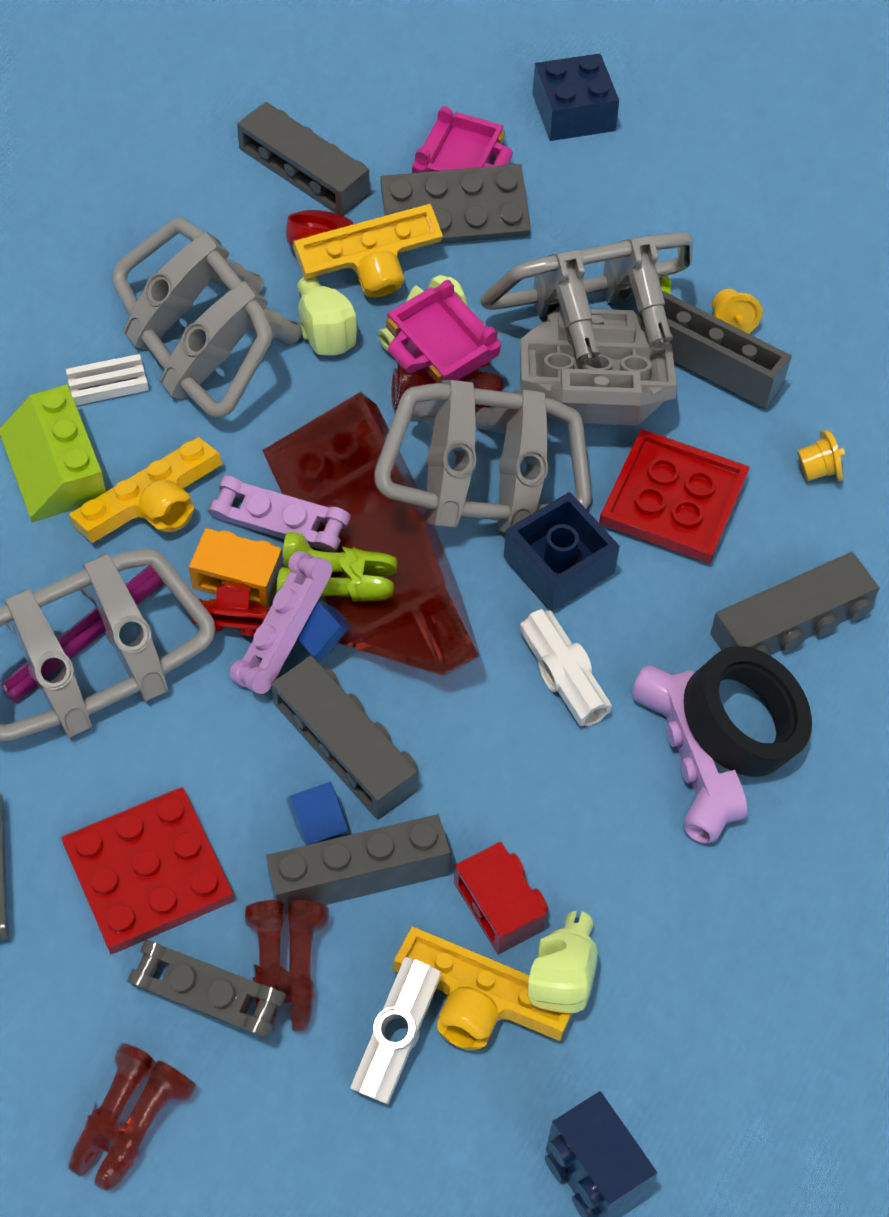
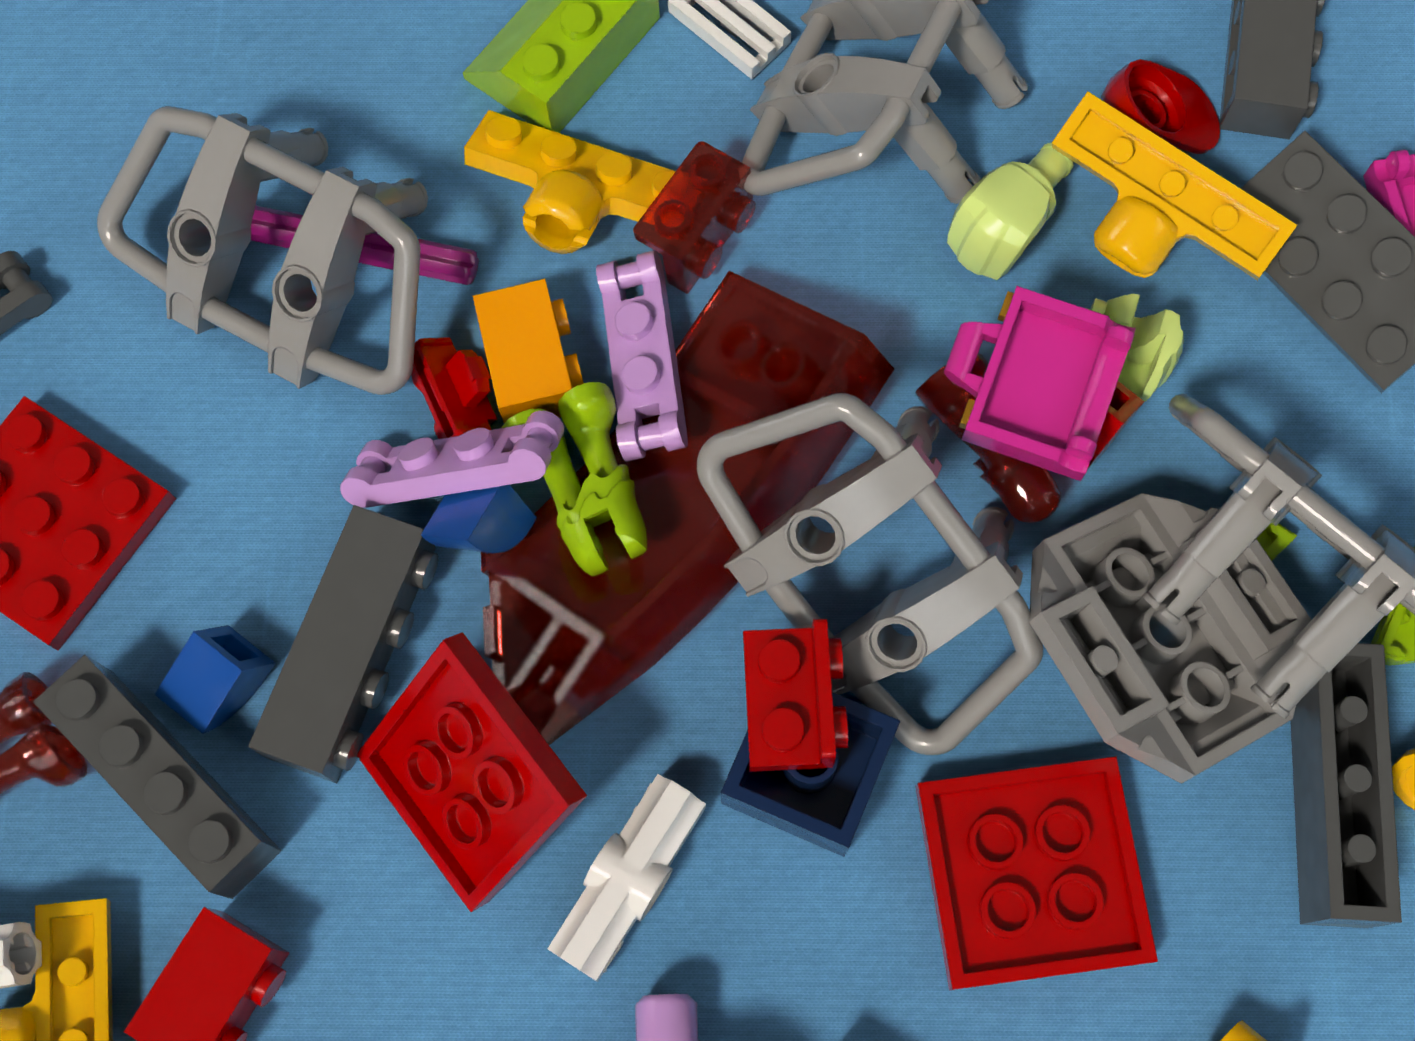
camera: 65 degrees right, 15 degrees up
(219, 442) = (697, 214): none -> clear red bracket
(467, 696) = (469, 772): none -> red plate
(530, 521) = (791, 698): none -> red bracket

